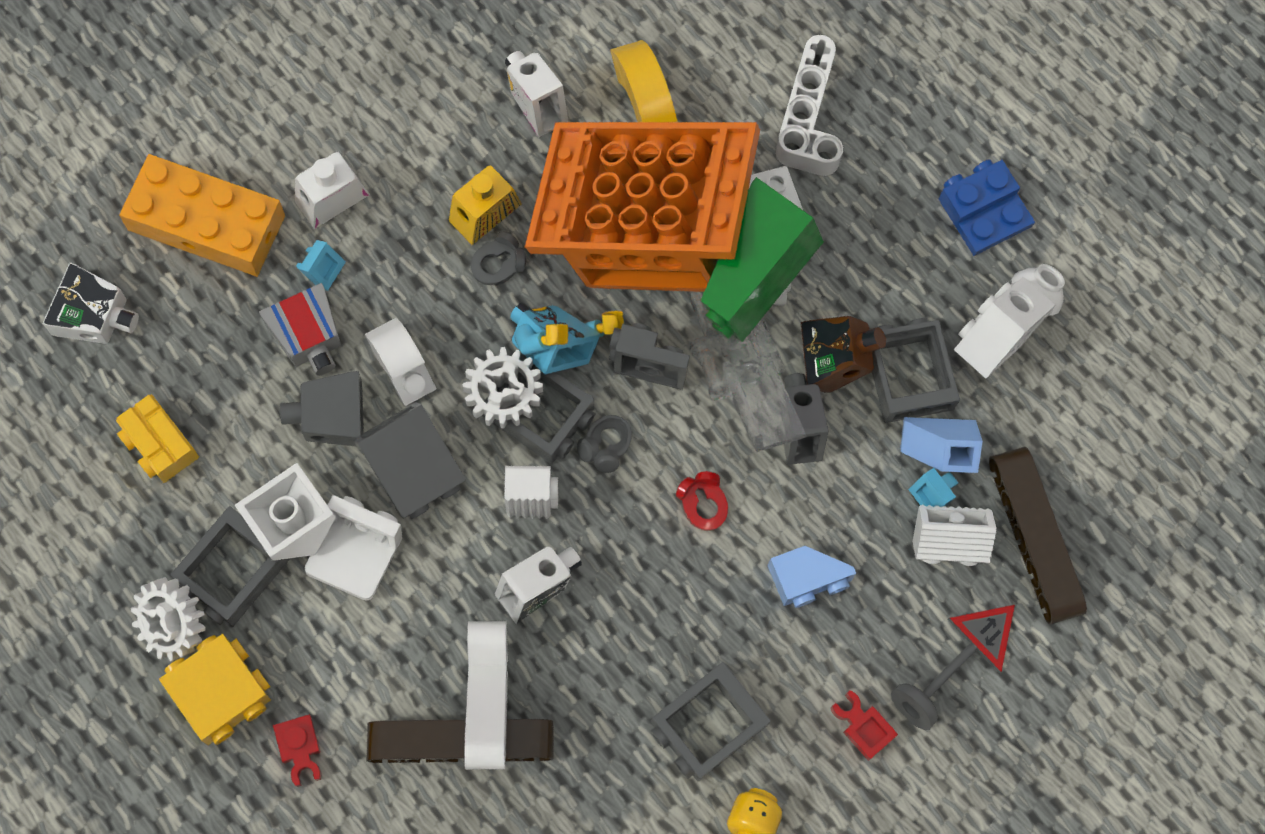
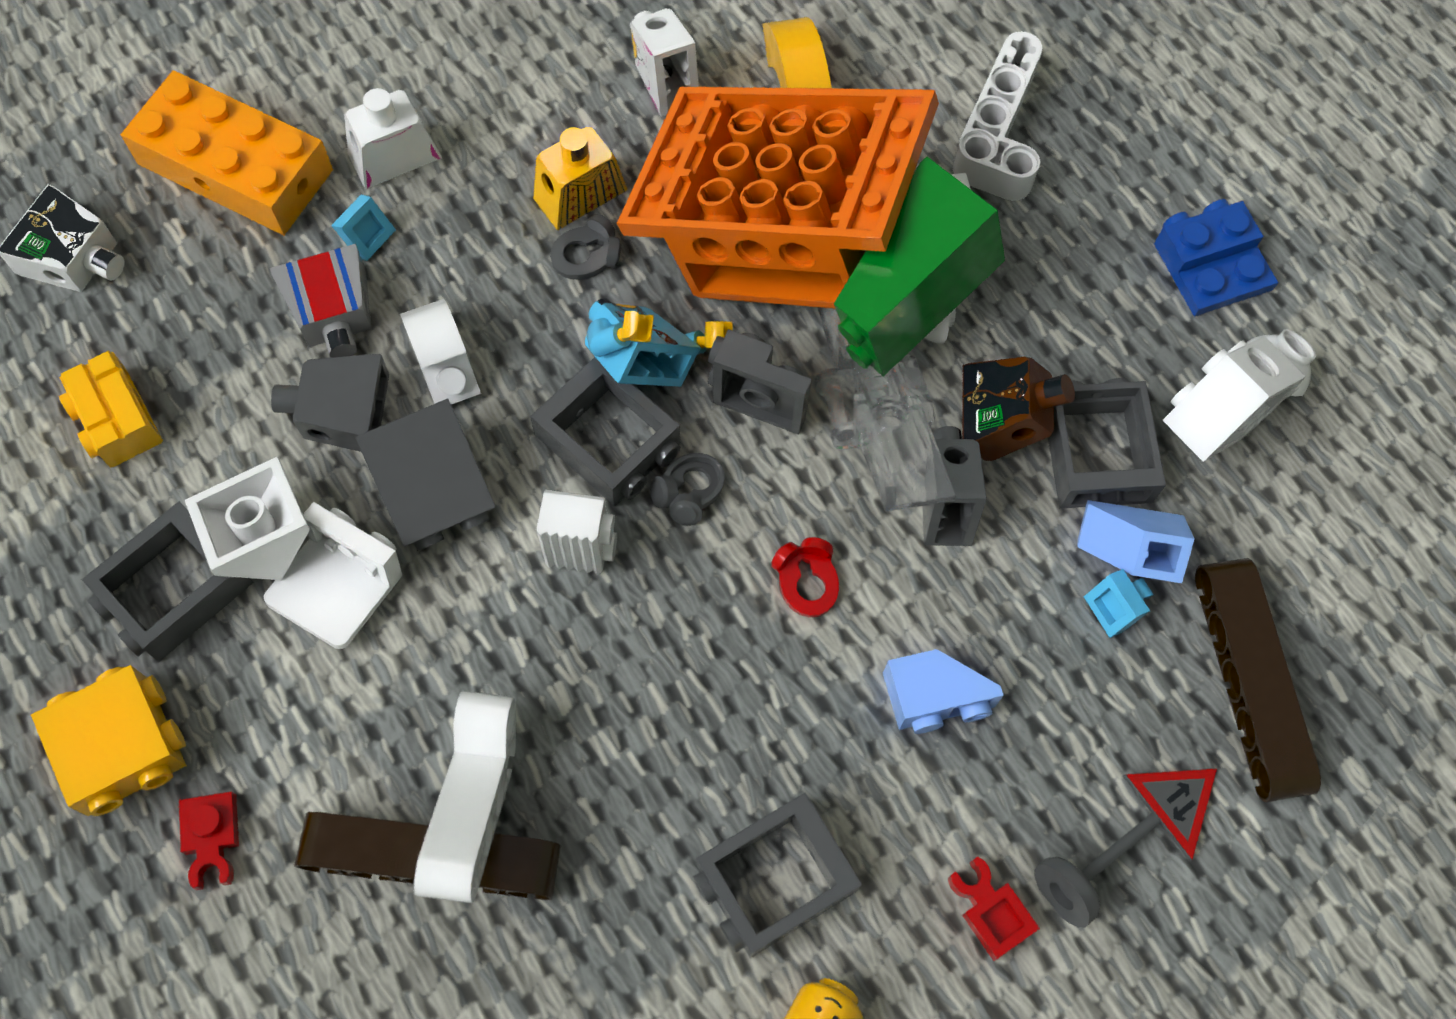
camera: 10 degrees right, 5 degrees down
(167, 618) = (66, 636): white gear -> none
(515, 394) = (565, 411): white gear -> none
(536, 581) = (566, 650): white torso -> none
(954, 535) = (1143, 662): white brick -> none

